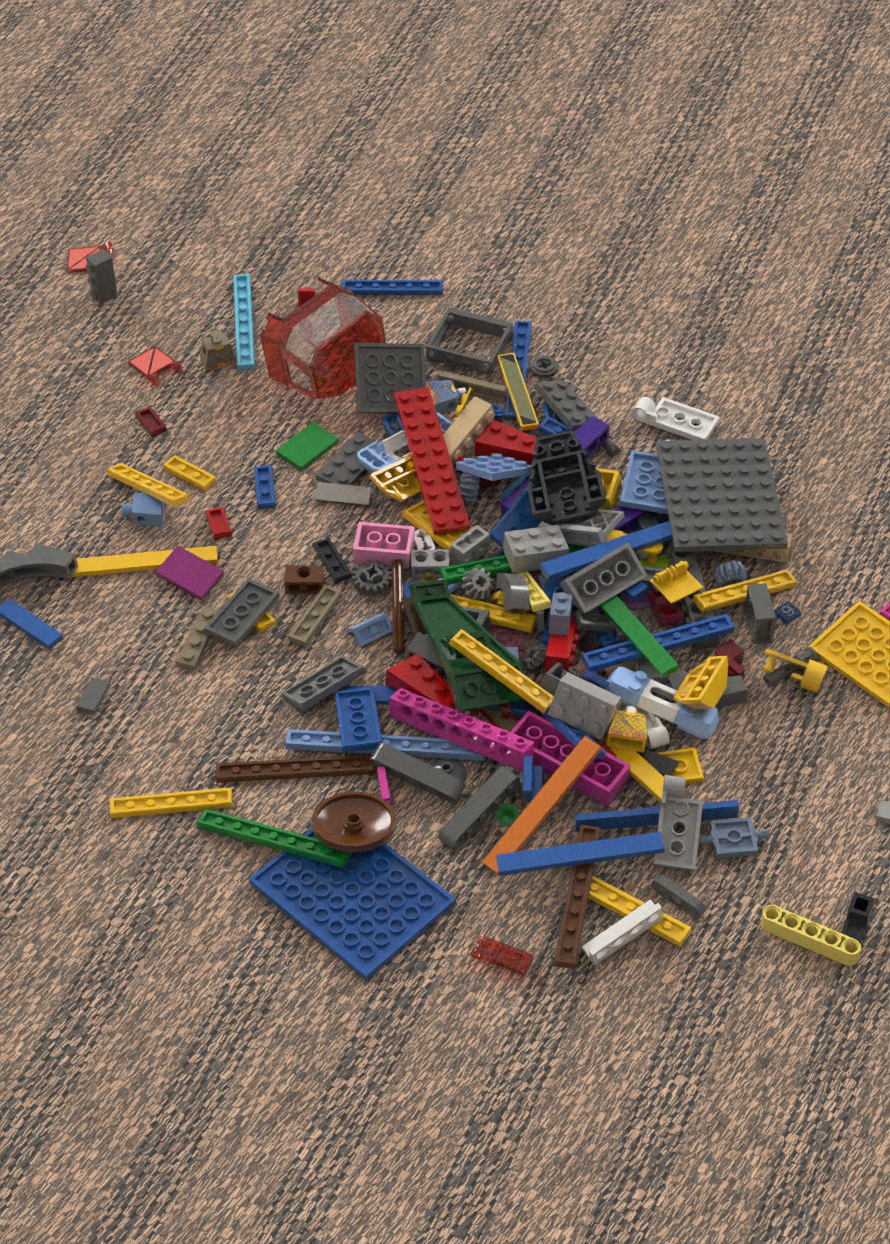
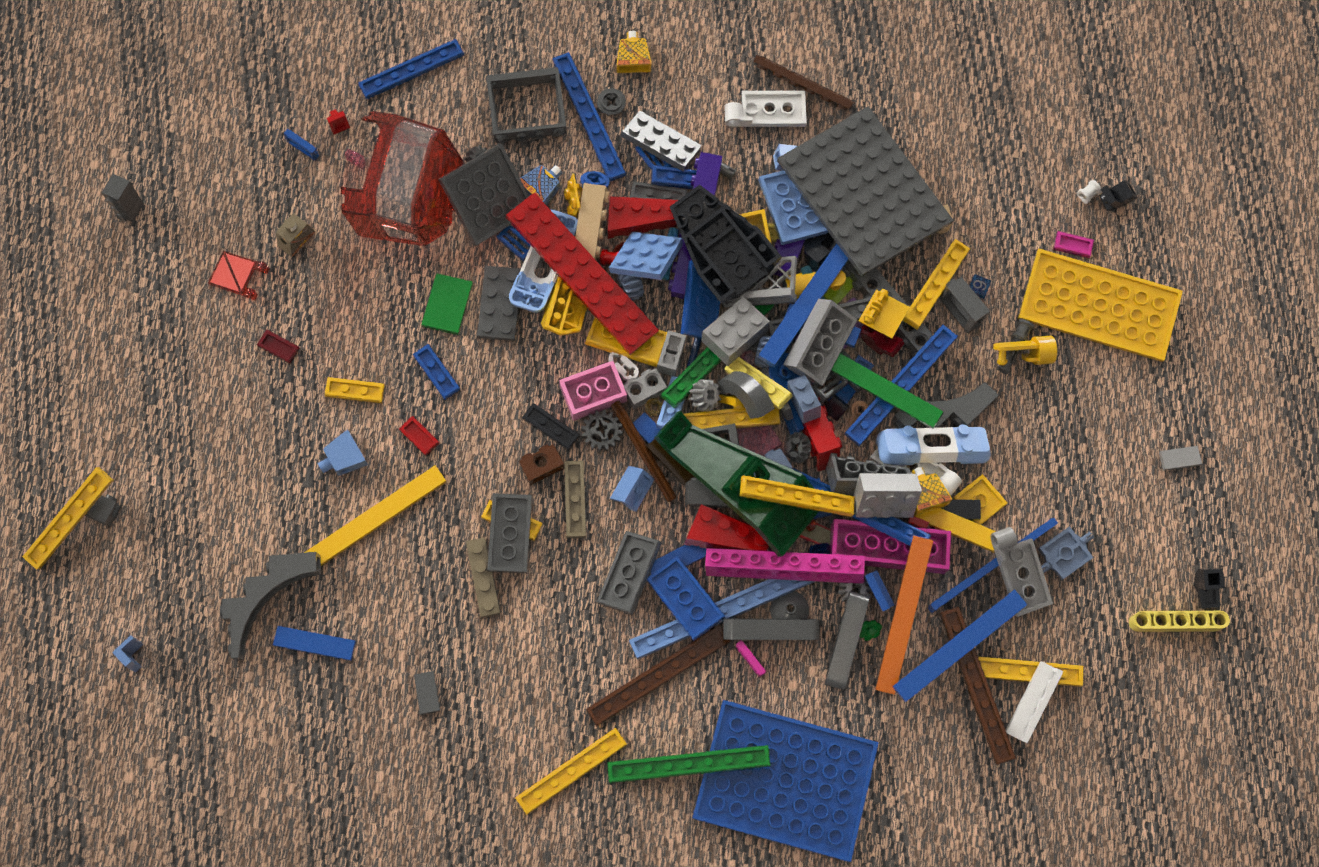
camera: 35 degrees left, 25 degrees up
(77, 256) = (82, 171): flag -> none
(148, 485) = (331, 431): yellow tile -> none
(189, 573) = (430, 510): magenta tile -> none
(243, 322) = (292, 179): medium azure tile -> none
(266, 299) = (301, 144): none -> blue tile
(343, 493) = (516, 346): tile -> none
(353, 821) = (754, 717): reddish brown dish -> none
(479, 388) = (565, 159): dark tan plate -> none
(502, 955) = (947, 776): clear red plate -> none
(518, 392) = (607, 146): tile -> none
(583, 341) = (633, 55): none -> torso
(594, 678) = (870, 455): blue tile -> none
(678, 895) = (1058, 639): dark grey beam -> none
(704, 684) = (967, 417): yellow wedge -> none
(718, 408) = (796, 79): none -> reddish brown plate
(730, 573) = (915, 272): sand blue gear -> none
(735, 658) = (958, 368): dark red brick -> none

